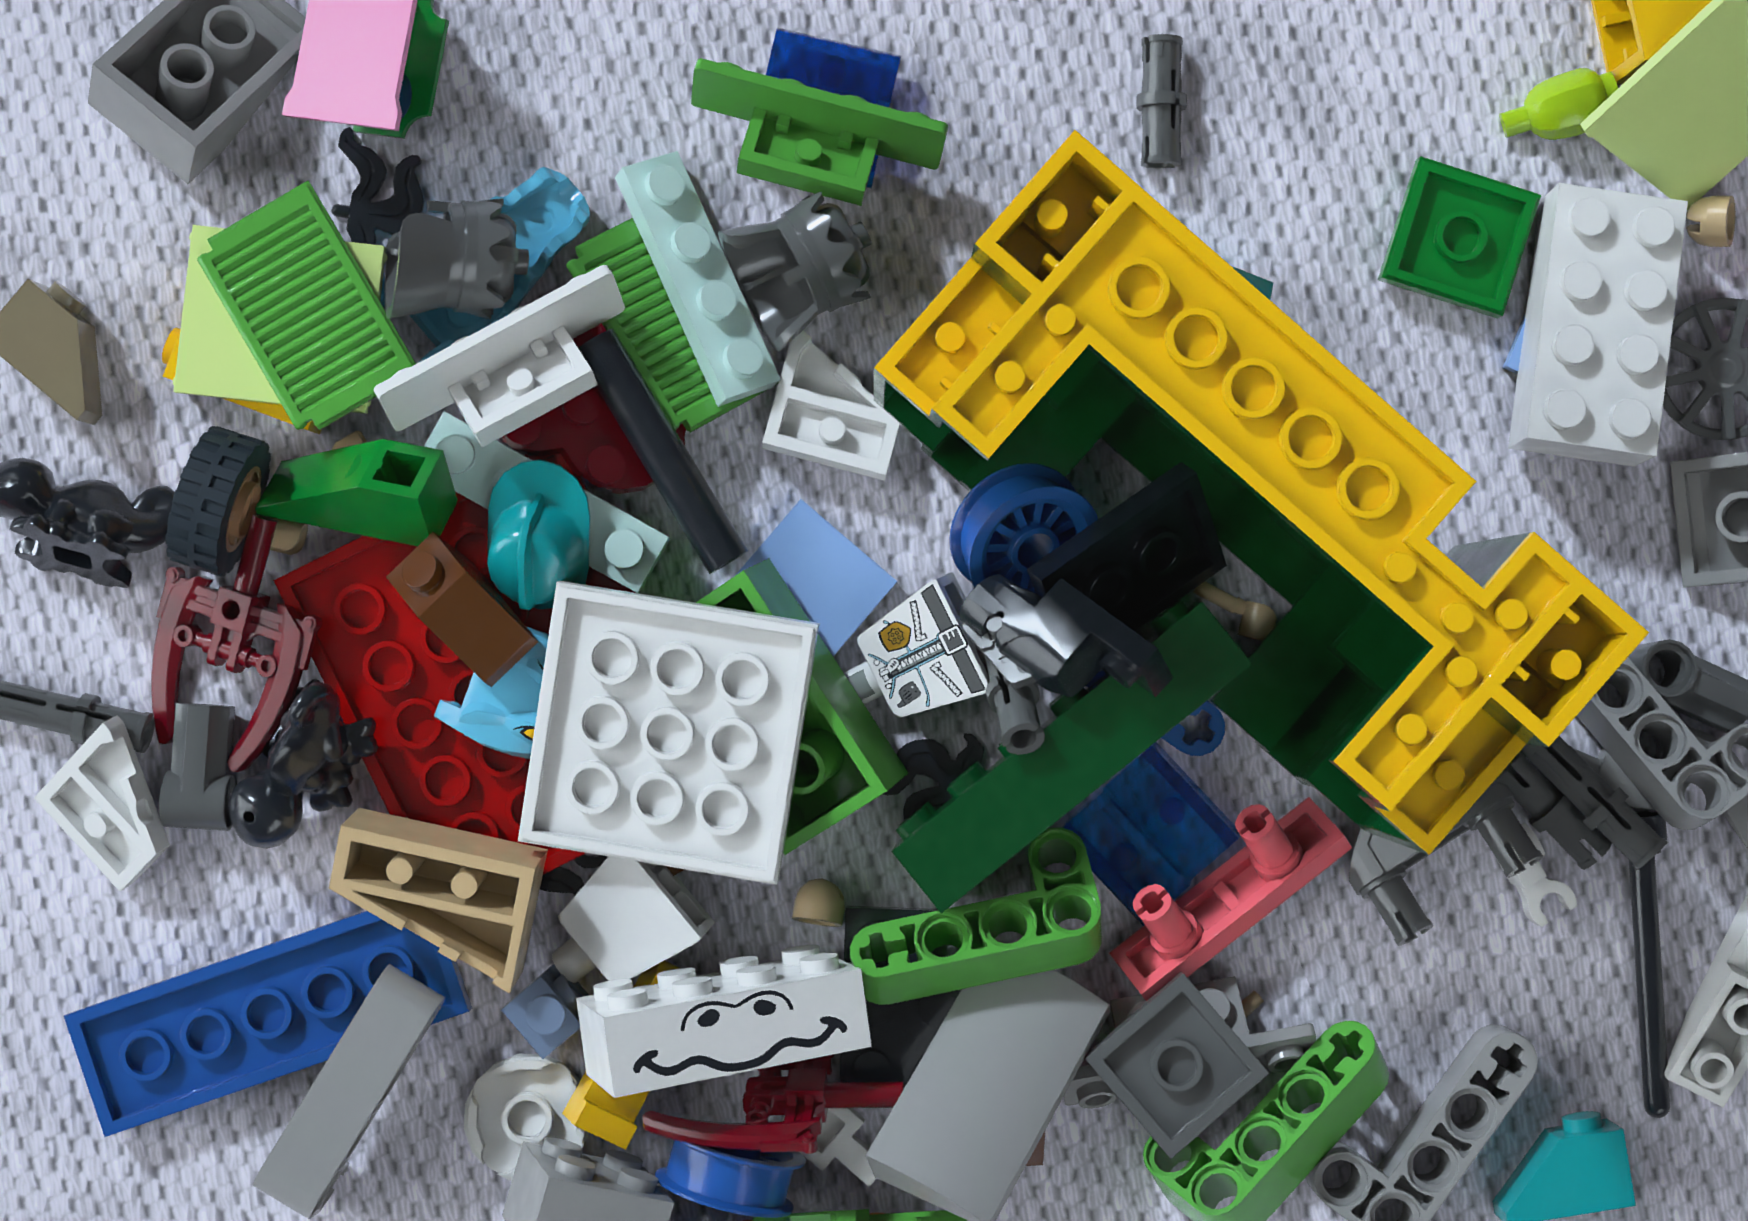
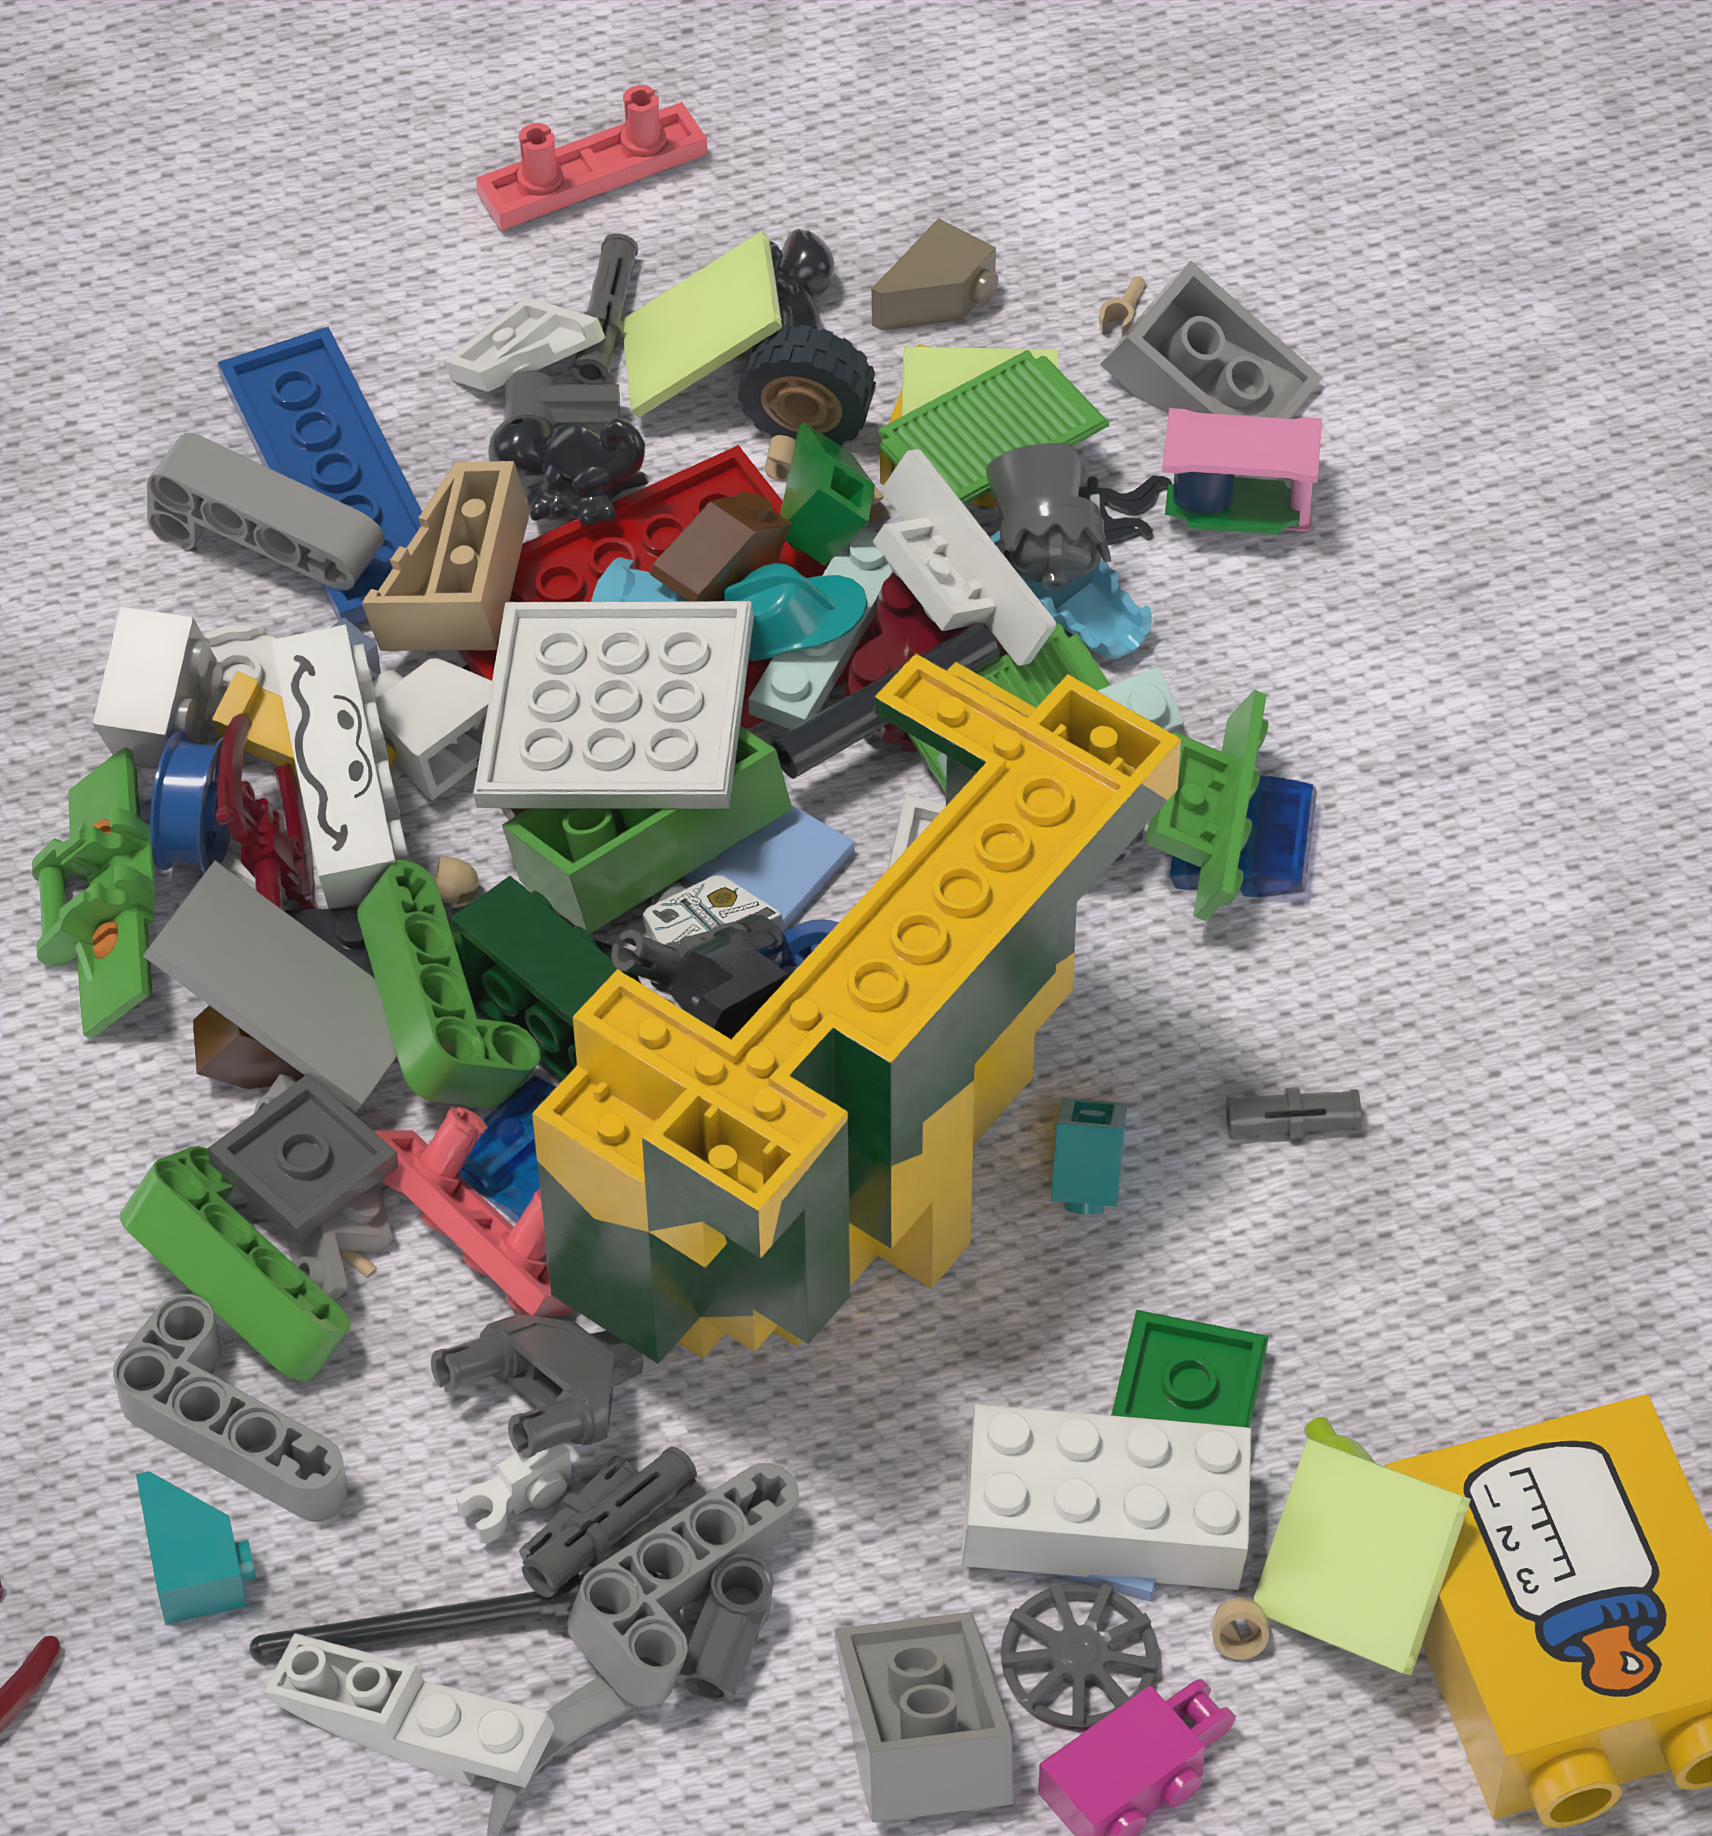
camera: 90 degrees right, 35 degrees down
(96, 148) = (1122, 308): none -> tan hand
(117, 608) = (701, 324): none -> yellowish green piece
(238, 617) = (704, 423): dark red bar -> none

